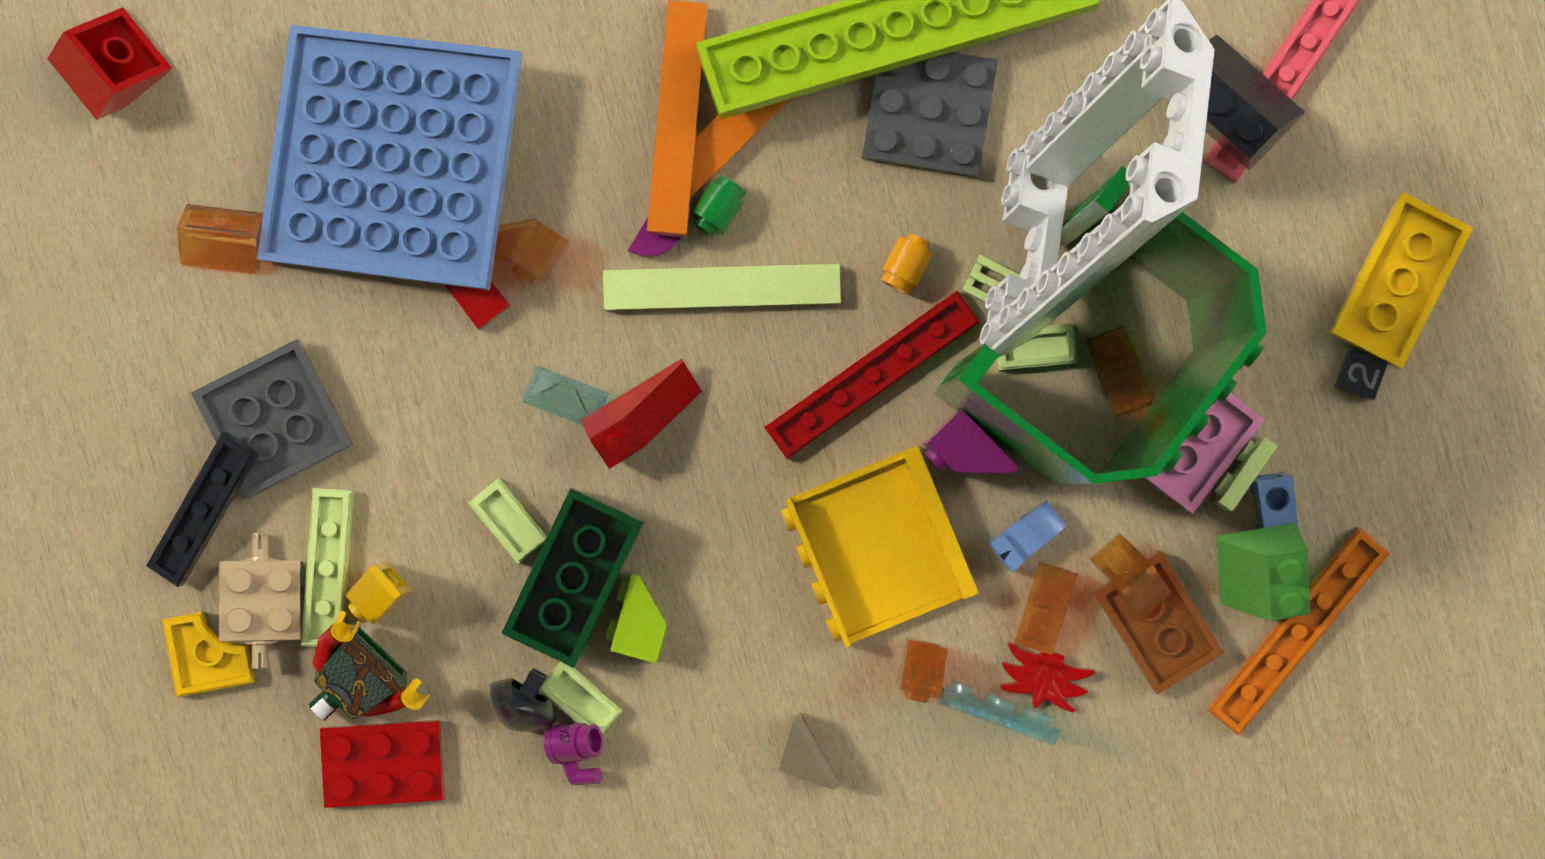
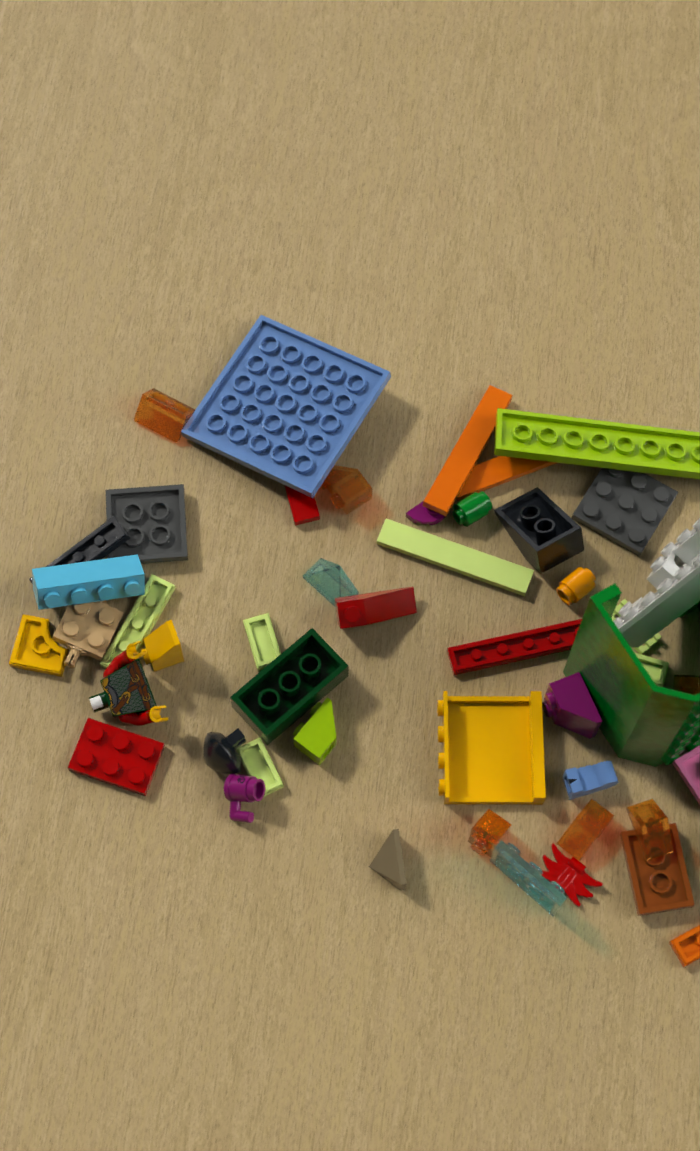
camera: 25 degrees right, 20 degrees down
(108, 62) = (145, 295): red slope -> none
(231, 545) = (88, 581): none -> medium azure brick
(825, 198) = (541, 530): none -> black slope

